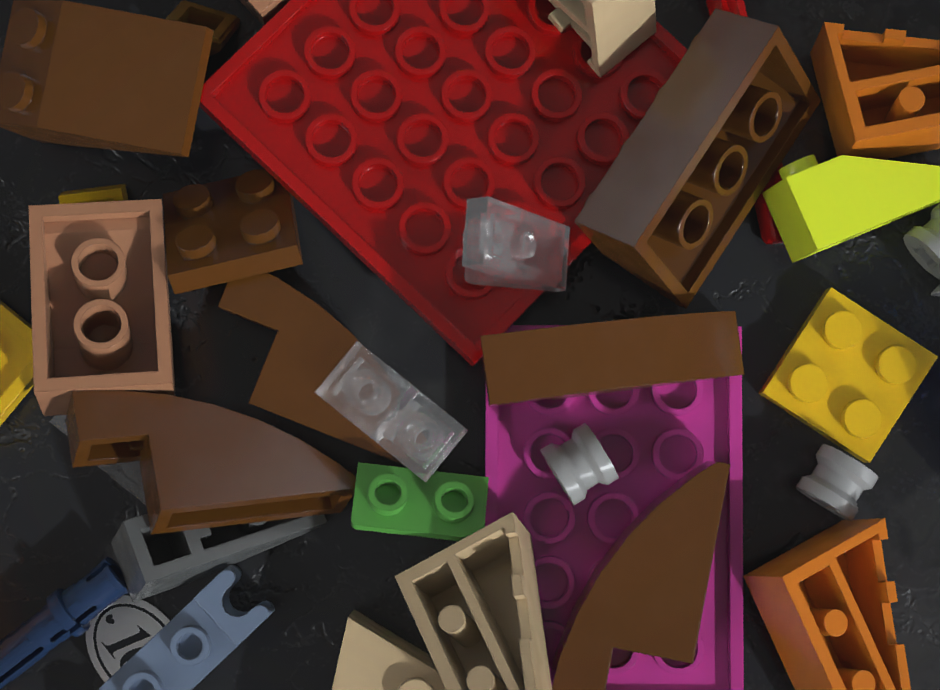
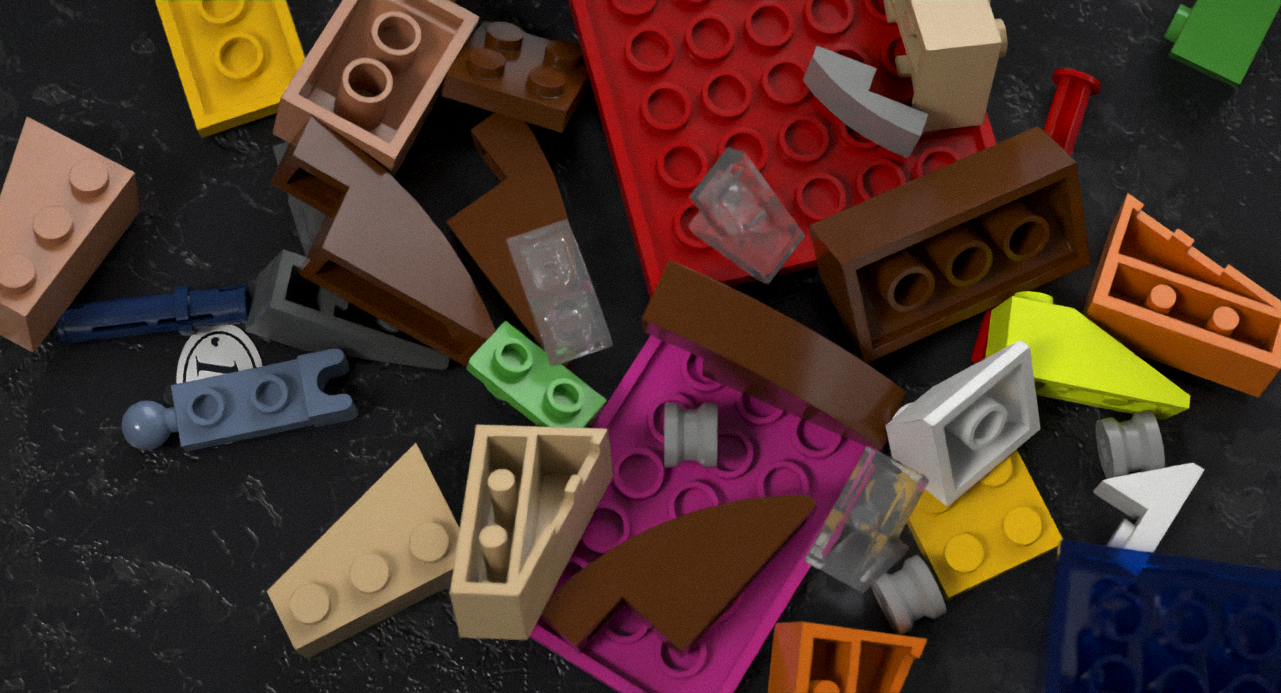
camera: 35 degrees right, 10 degrees down
(530, 76) = (844, 90): none -> light grey slope
(773, 446) = (865, 523): none -> clear slope
(805, 313) = (968, 422): none -> white slope

